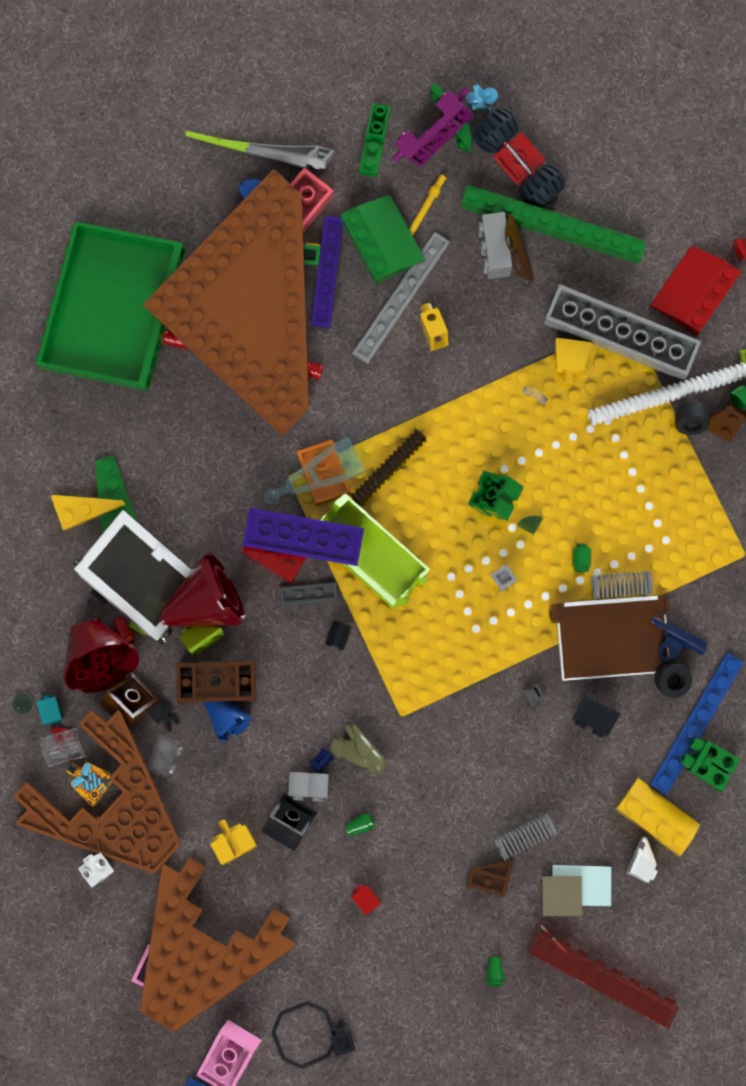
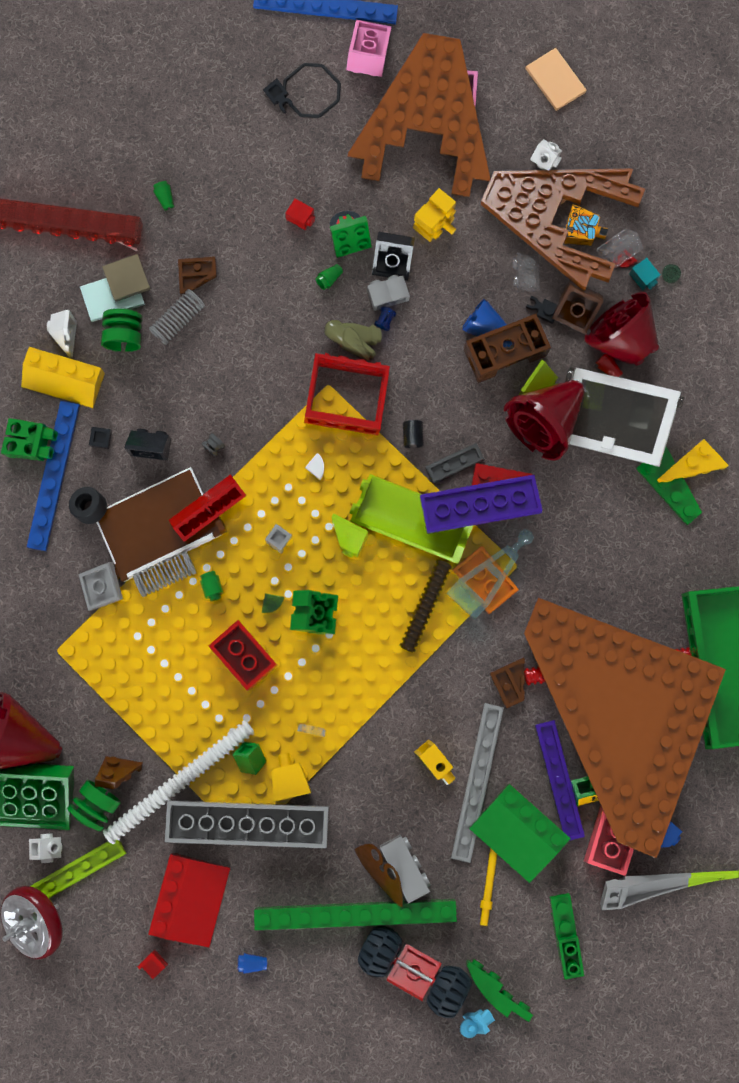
camera: 160 degrees right, 0 degrees up
(50, 952) = (555, 79): none -> light nougat tile
(324, 862) = (349, 233): none -> green plate
(337, 372) = (510, 682): none -> reddish brown wing
(378, 728) = (343, 422): none -> red window
(436, 555) = (349, 536): none -> lime slope
(442, 637) = (316, 466): none -> white tile
(444, 128) = (518, 942): magenta brick -> none
(560, 631) = (207, 508): none -> red brick
(574, 481) = (243, 655): none -> red brick
(584, 840) = (121, 326): none -> green wheel
(600, 390) = (249, 758): none -> green panel
(640, 743) = (100, 437): none -> black plate
(659, 218) = (251, 963): none -> blue cone
(677, 639) = (95, 543): dark blue piece -> none
(685, 598) = (100, 586): none -> light grey tile
(691, 418) = (150, 763): black tyre -> none

